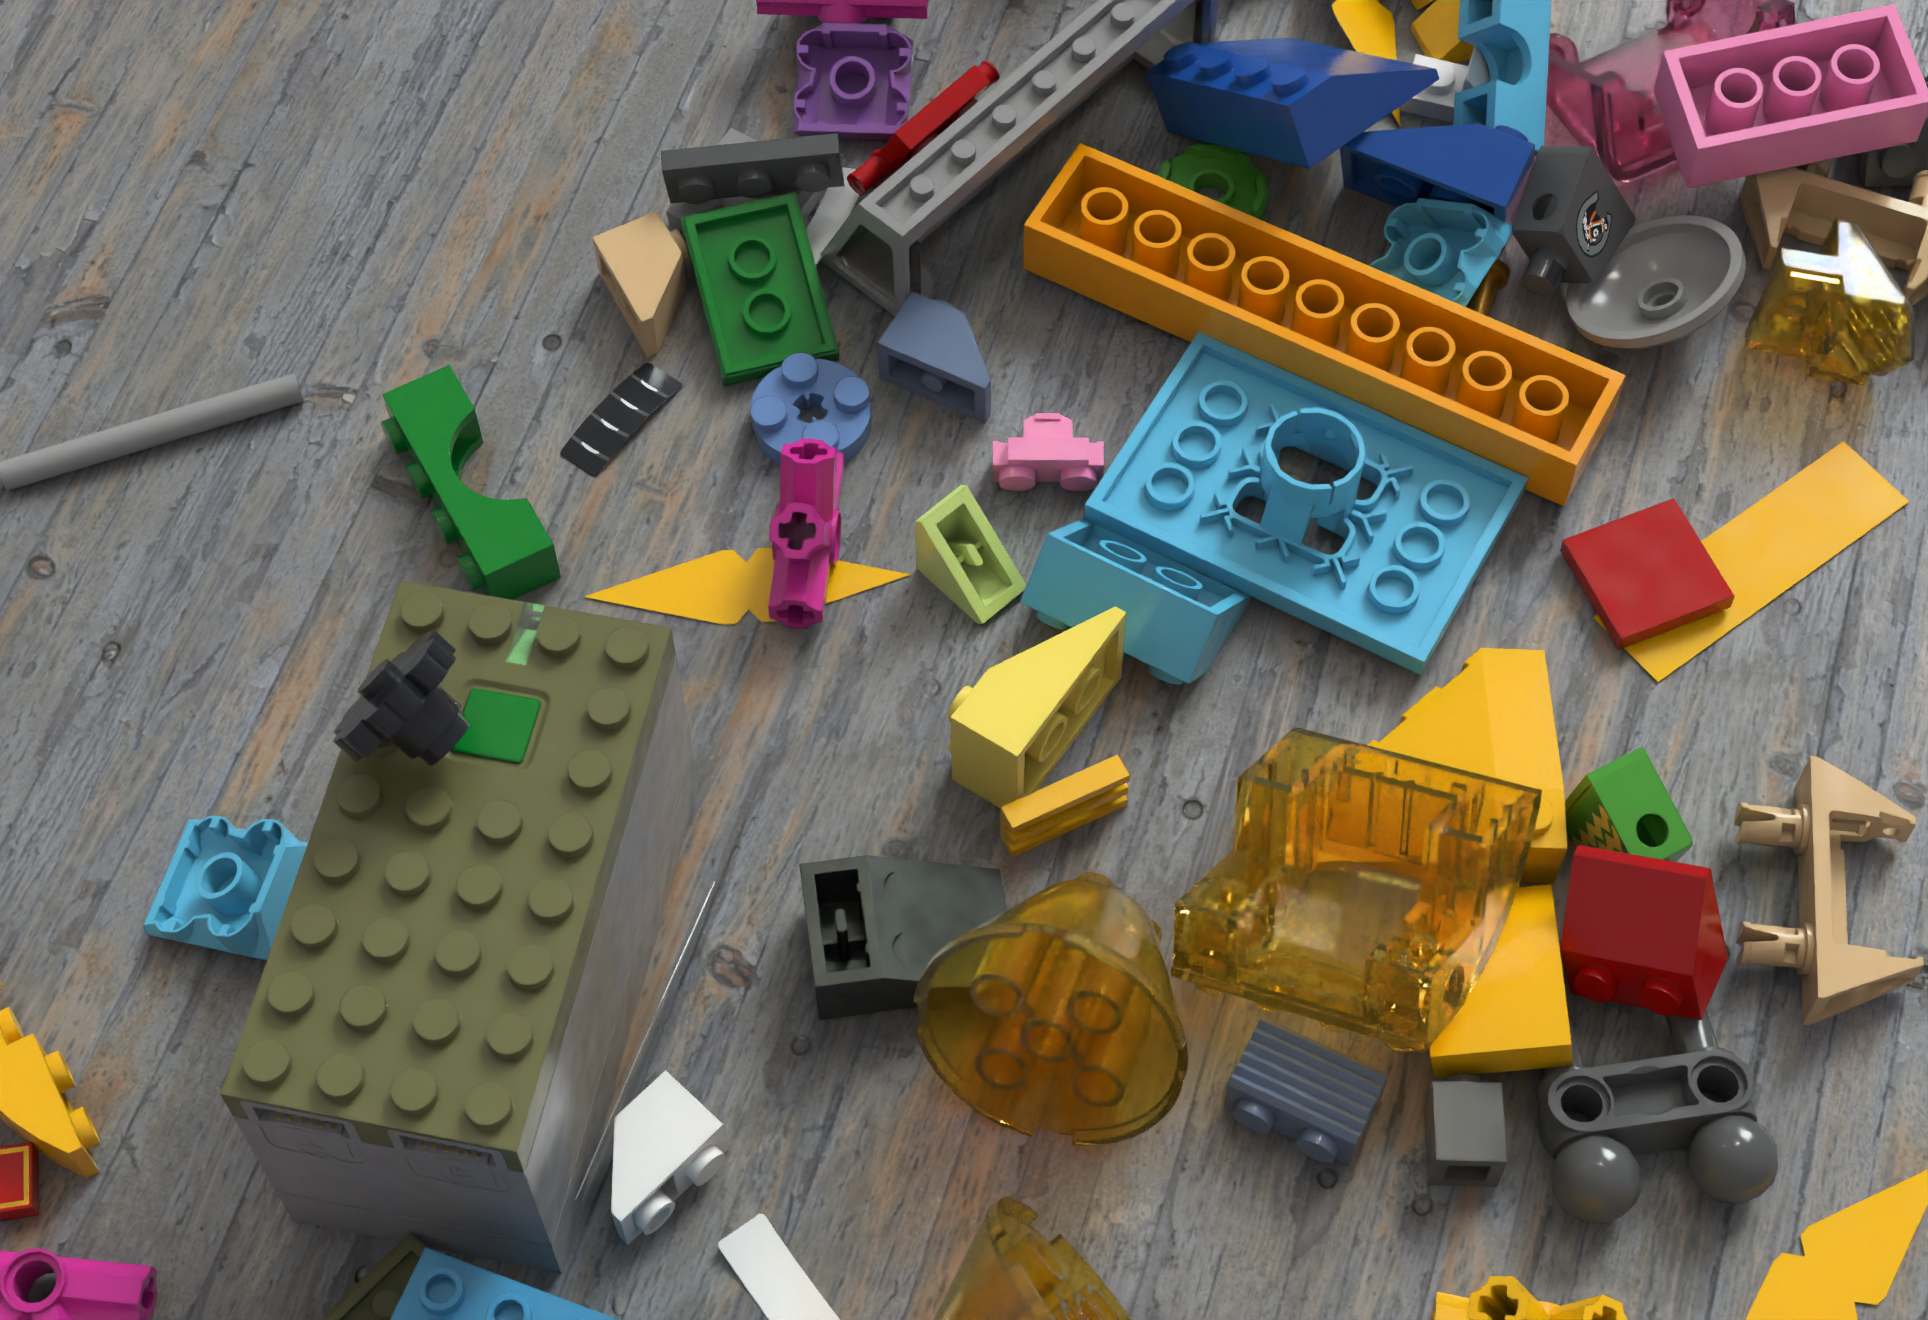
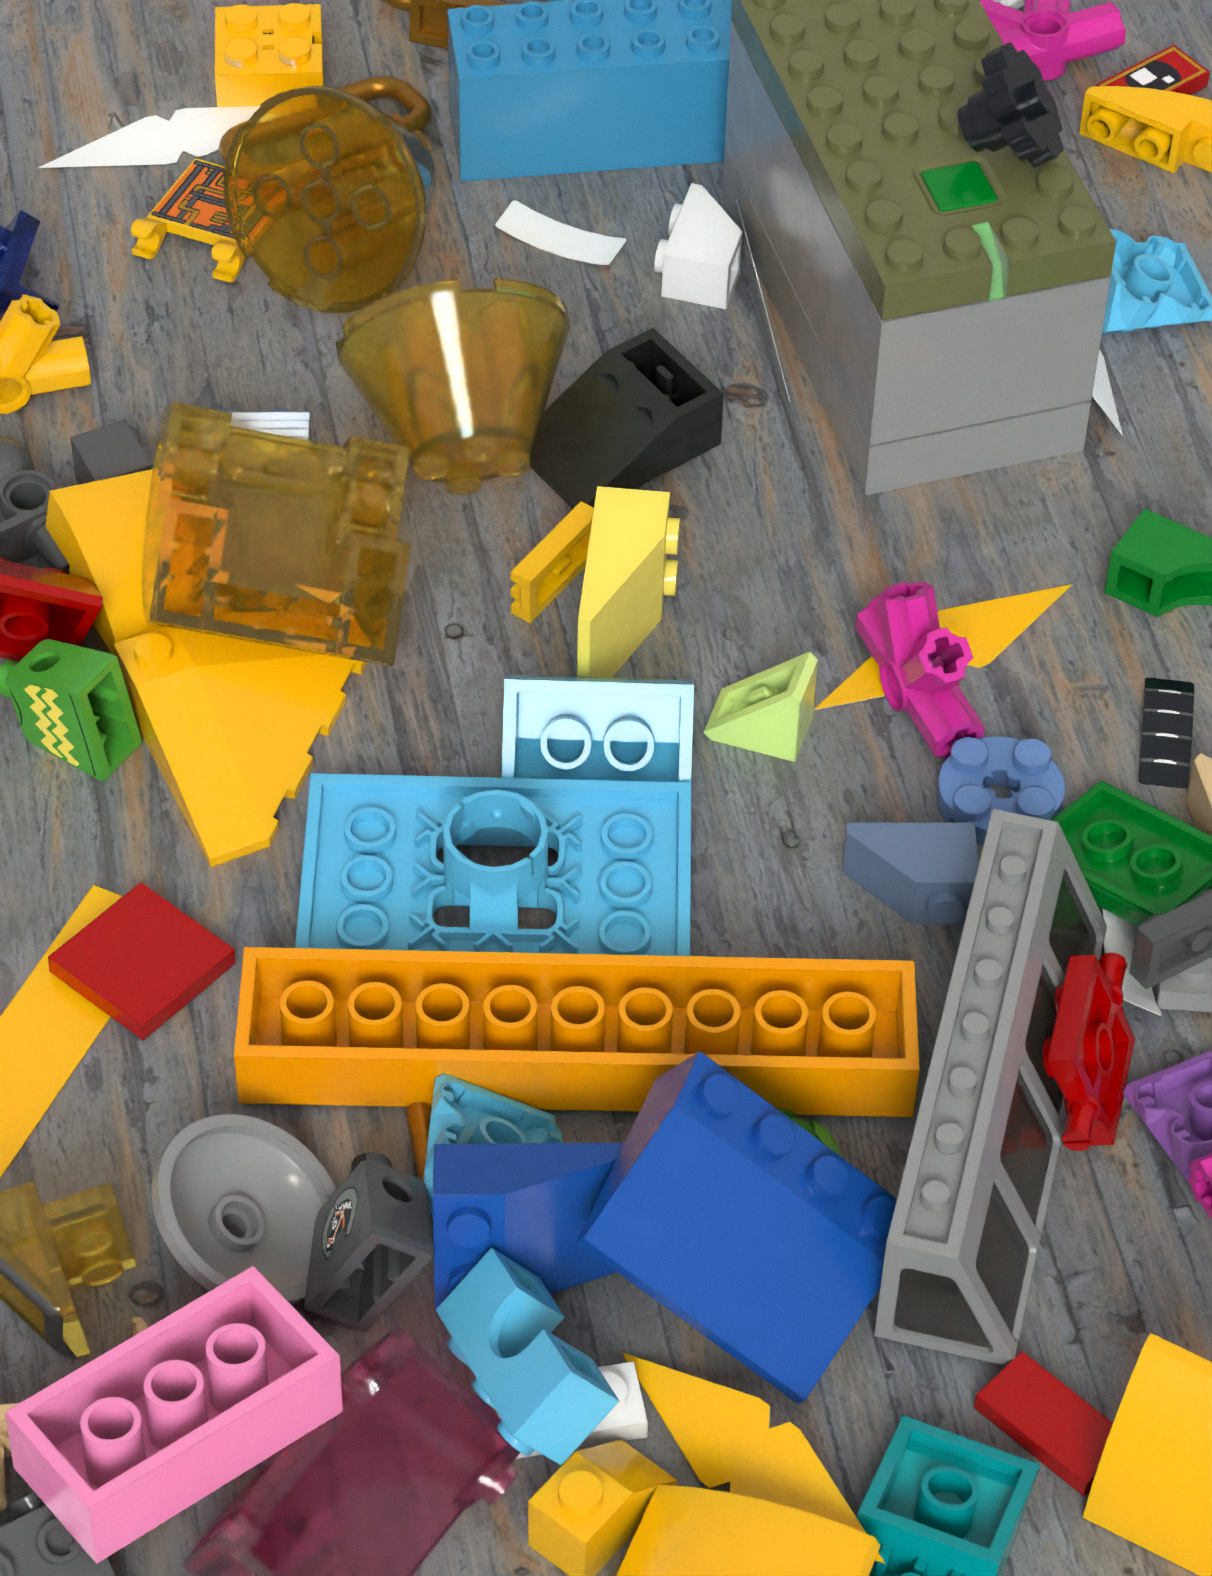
camera: 150 degrees right, 10 degrees down
(1048, 455) = (755, 825): bright pink piece -> none

